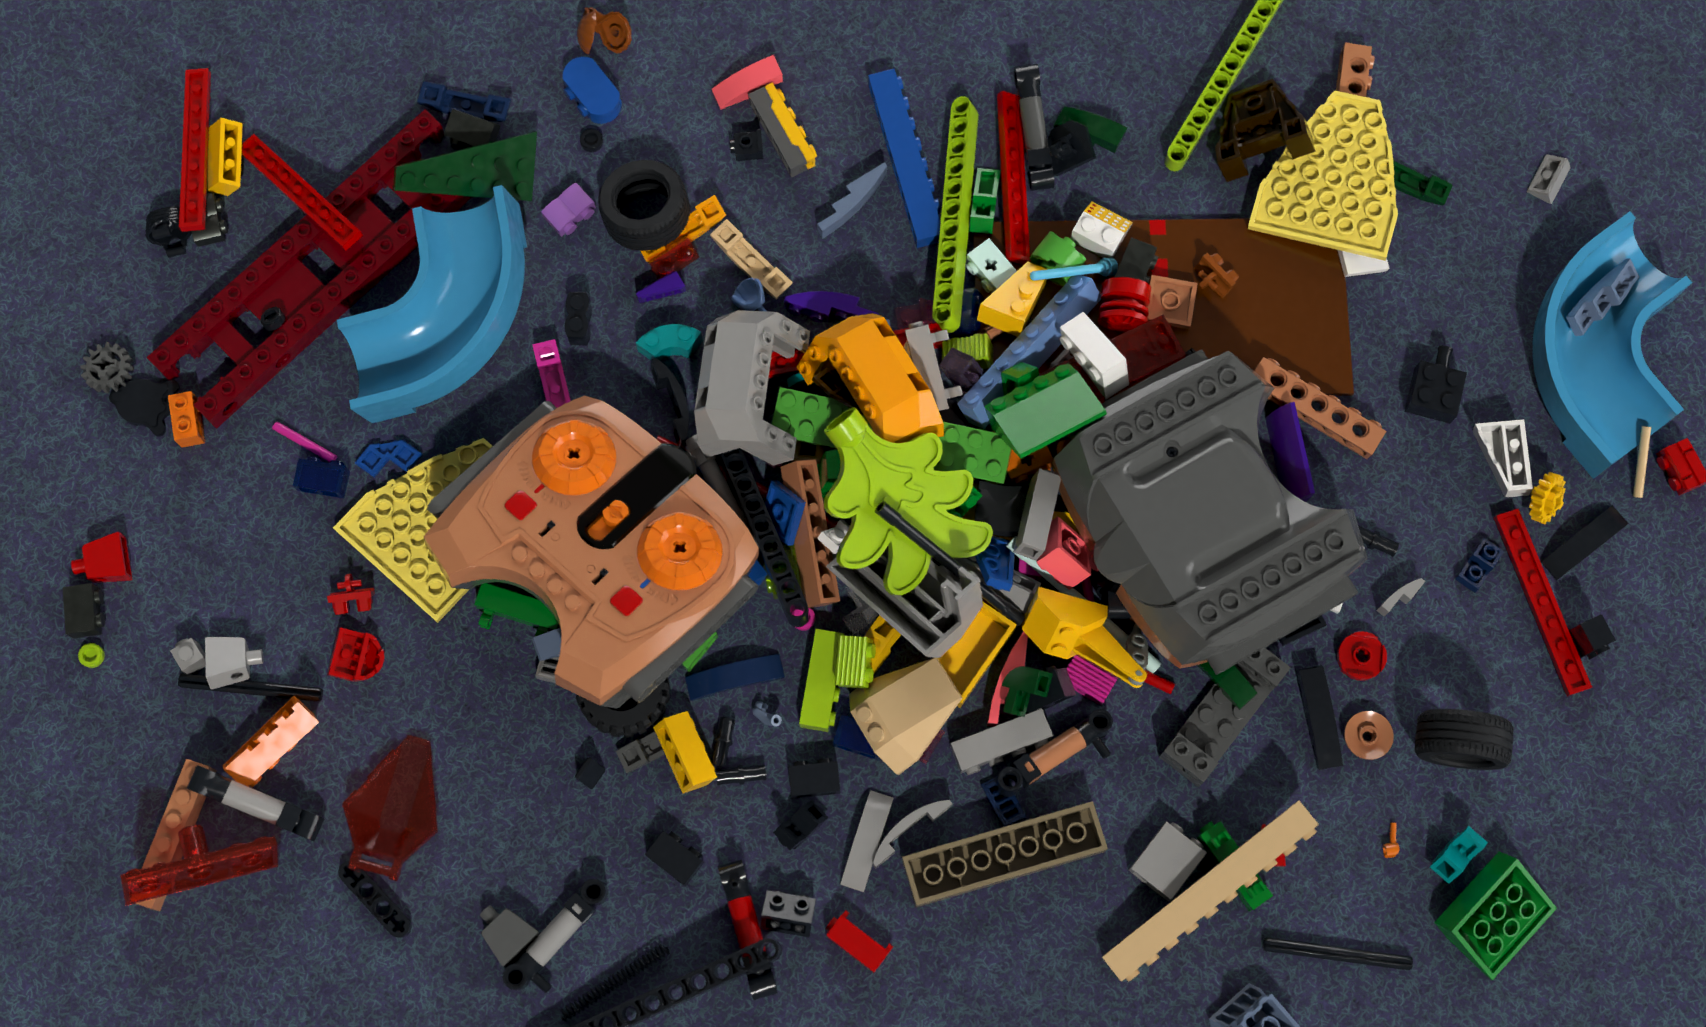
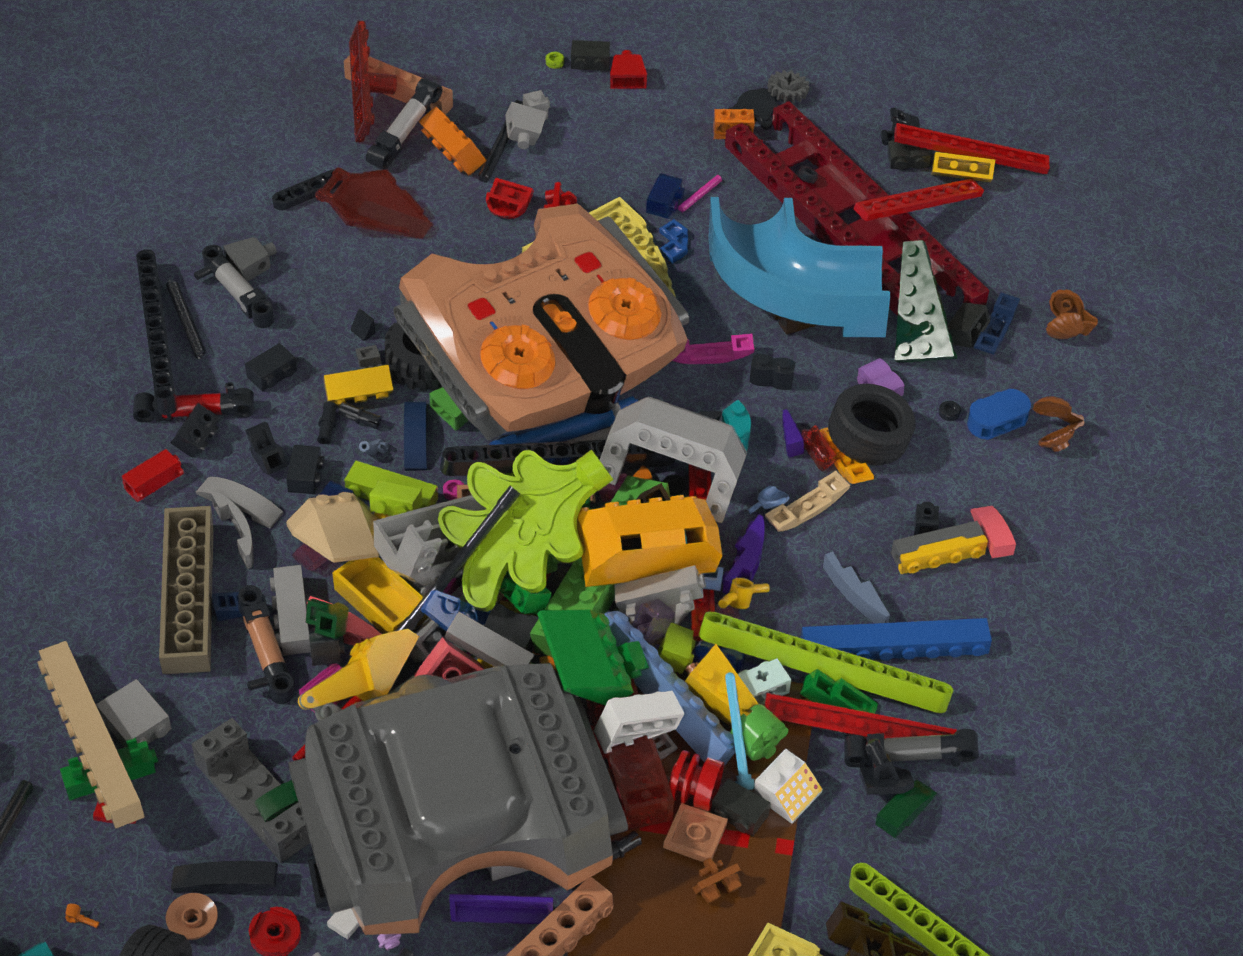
camera: 100 degrees right, 25 degrees down
(429, 28) = (1070, 316): none -> dark orange animal
(885, 304) = (741, 593): none -> yellow piece

